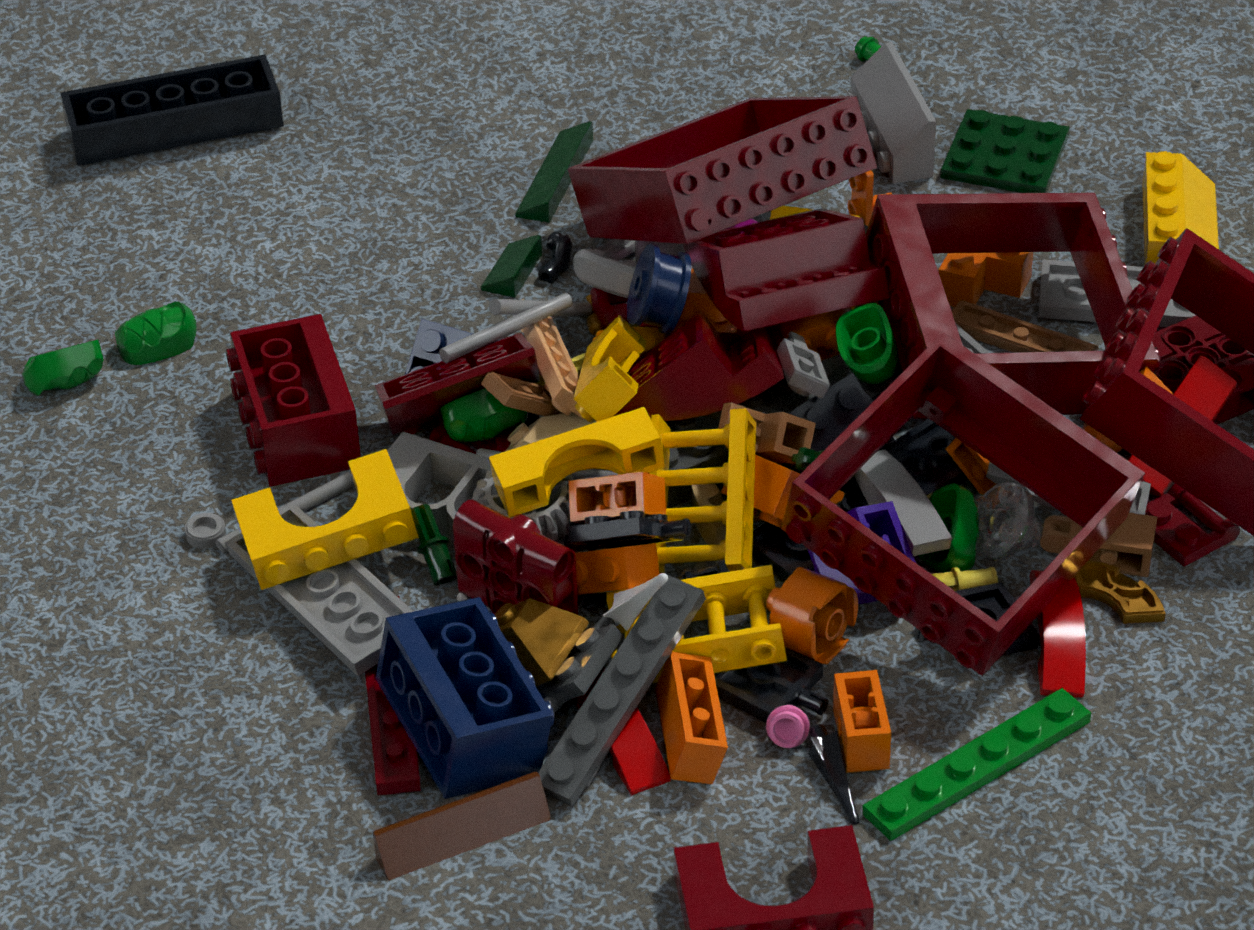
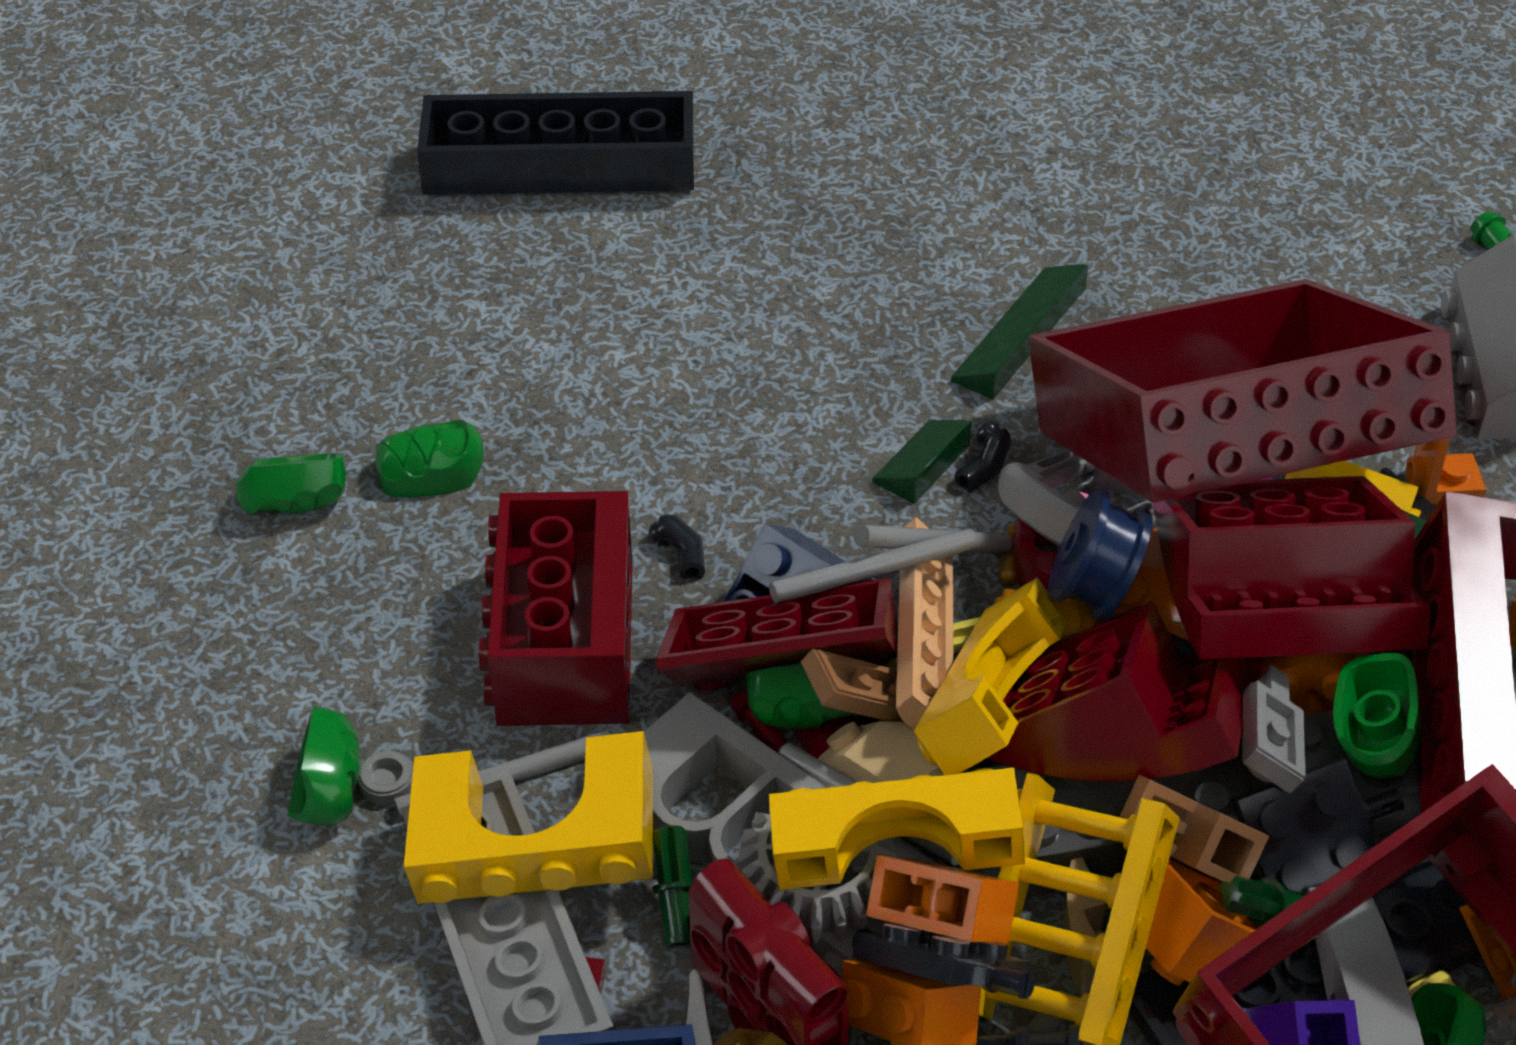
camera: 15 degrees right, 5 degrees up
(162, 530) = (326, 770): none -> green piece
(351, 344) = (674, 531): none -> black arm

